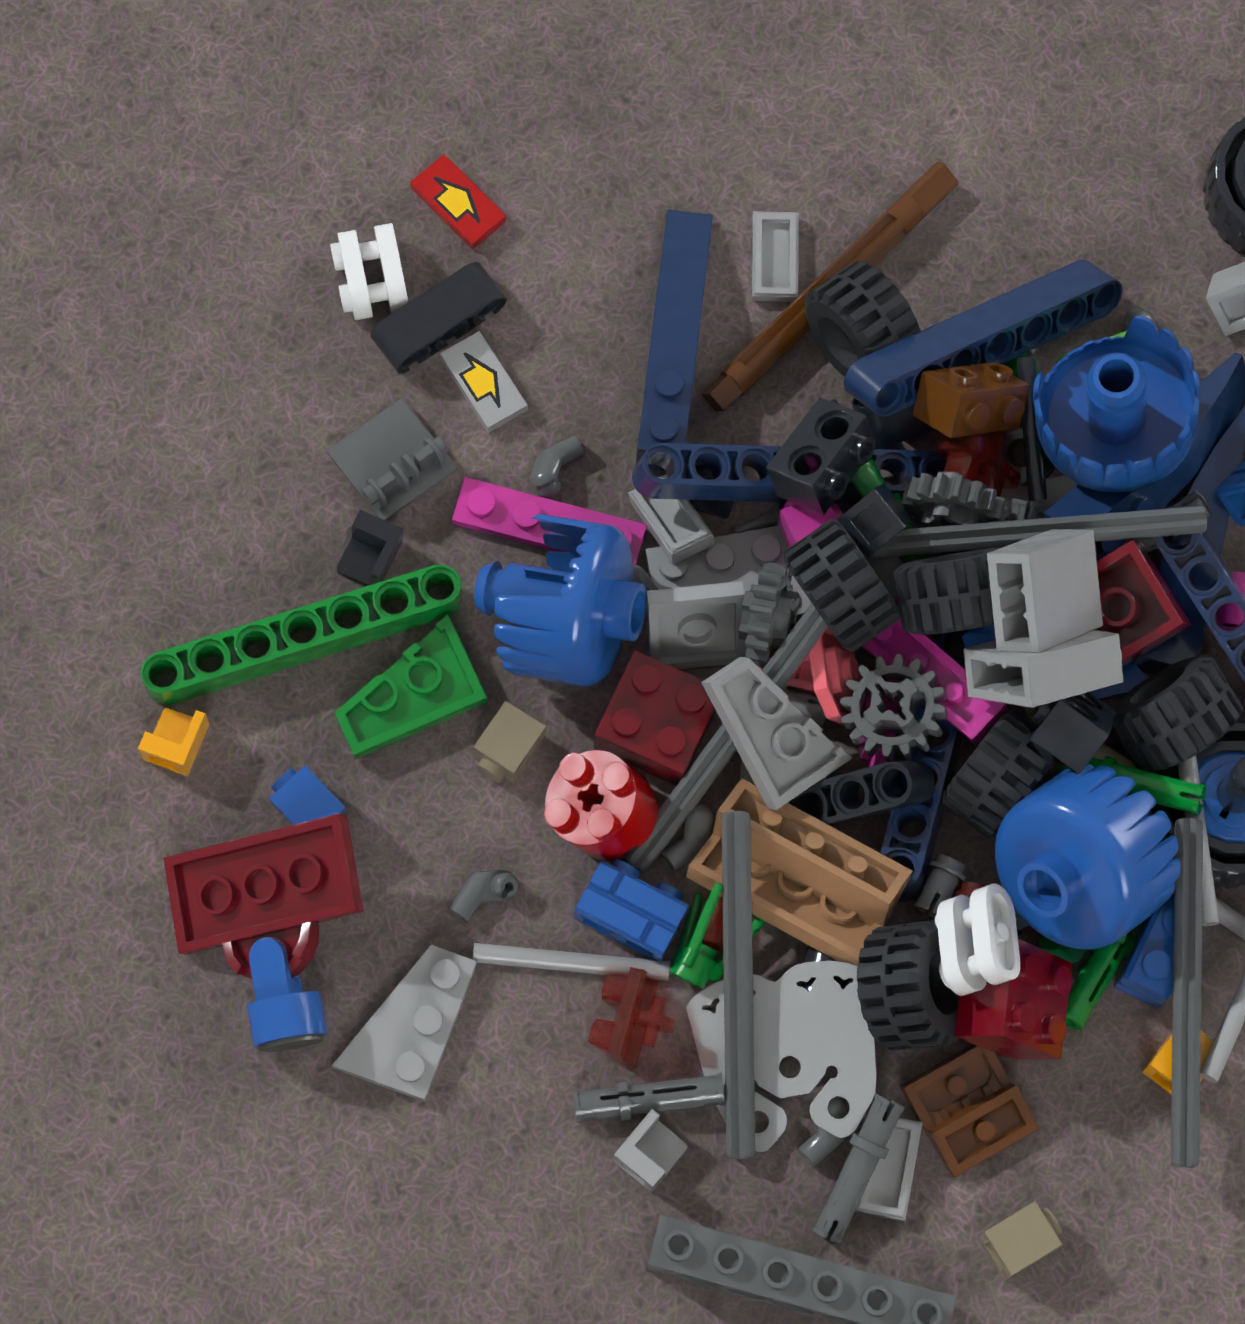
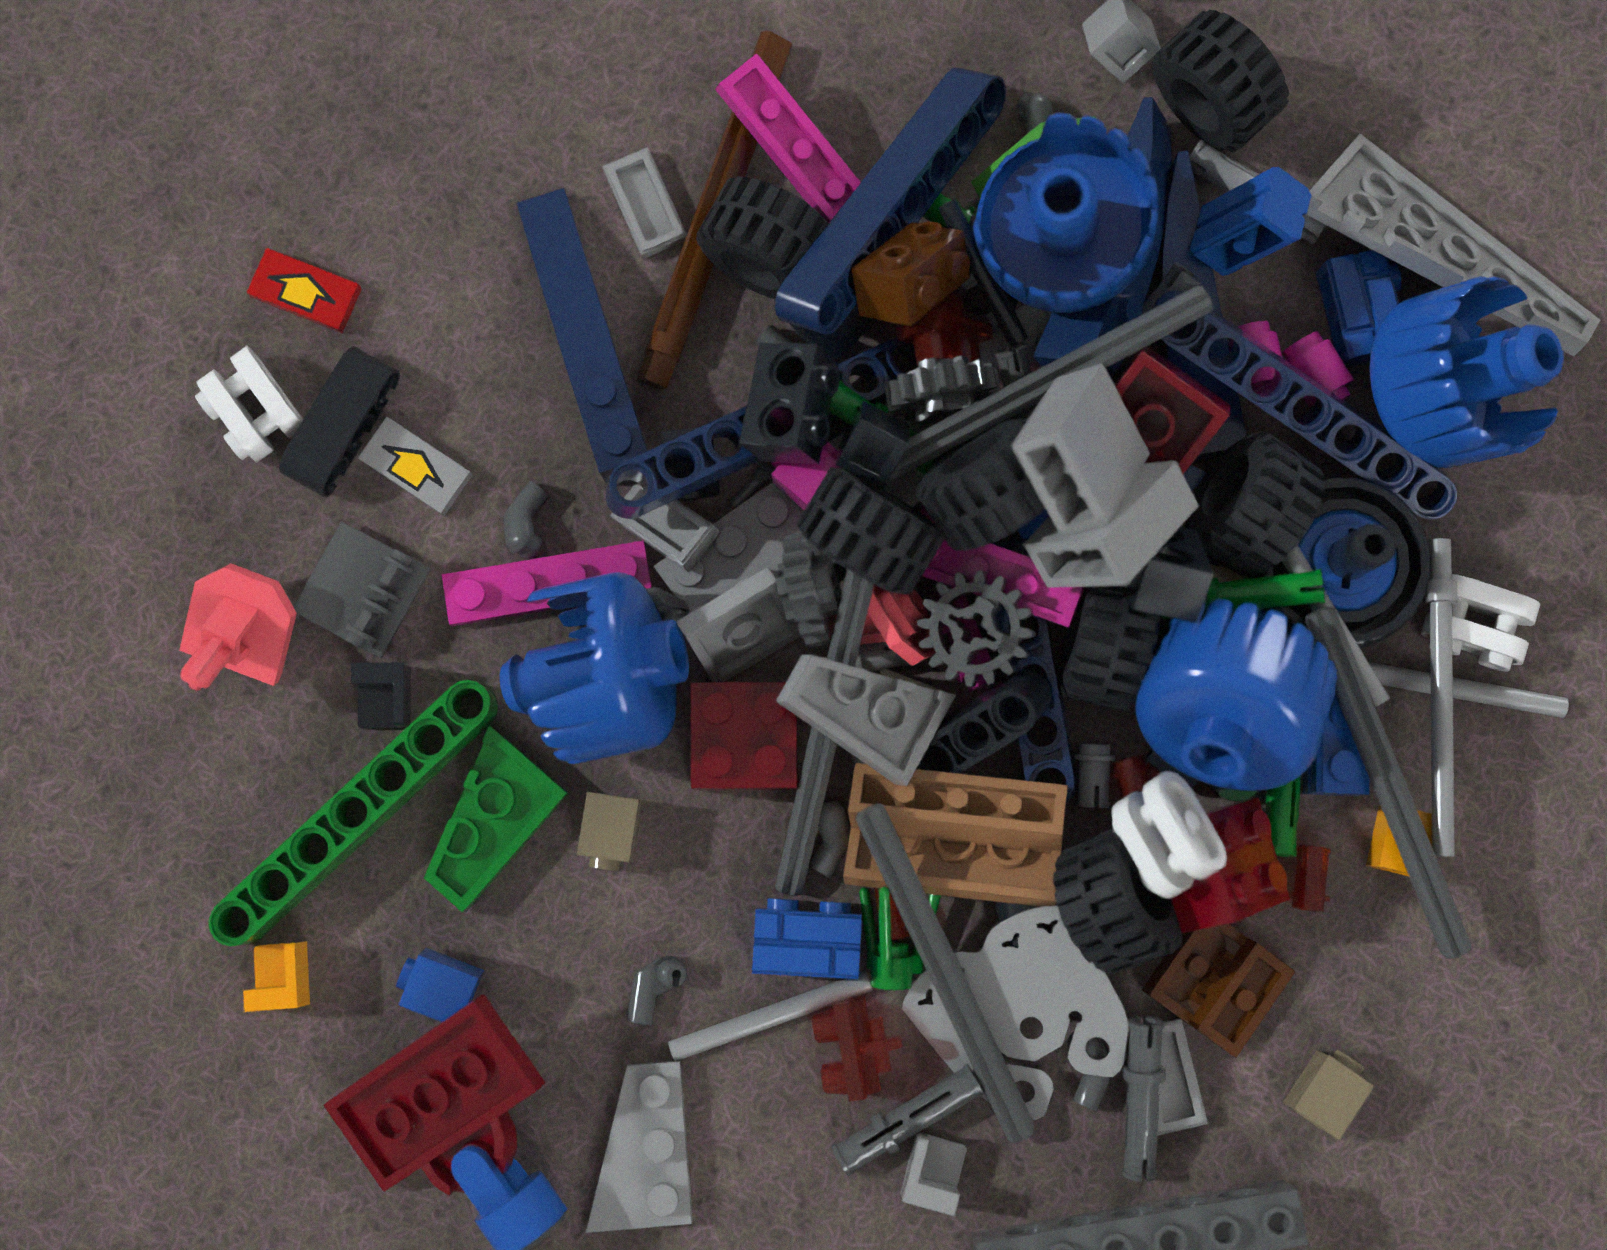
camera: 15 degrees left, 10 degrees up
(278, 441) = (236, 624): none -> coral piece
(600, 804) = (728, 854): brick -> none
(919, 250) = (788, 136): none -> dark pink plate
(1087, 1057) = (1310, 878): none -> clear red pin

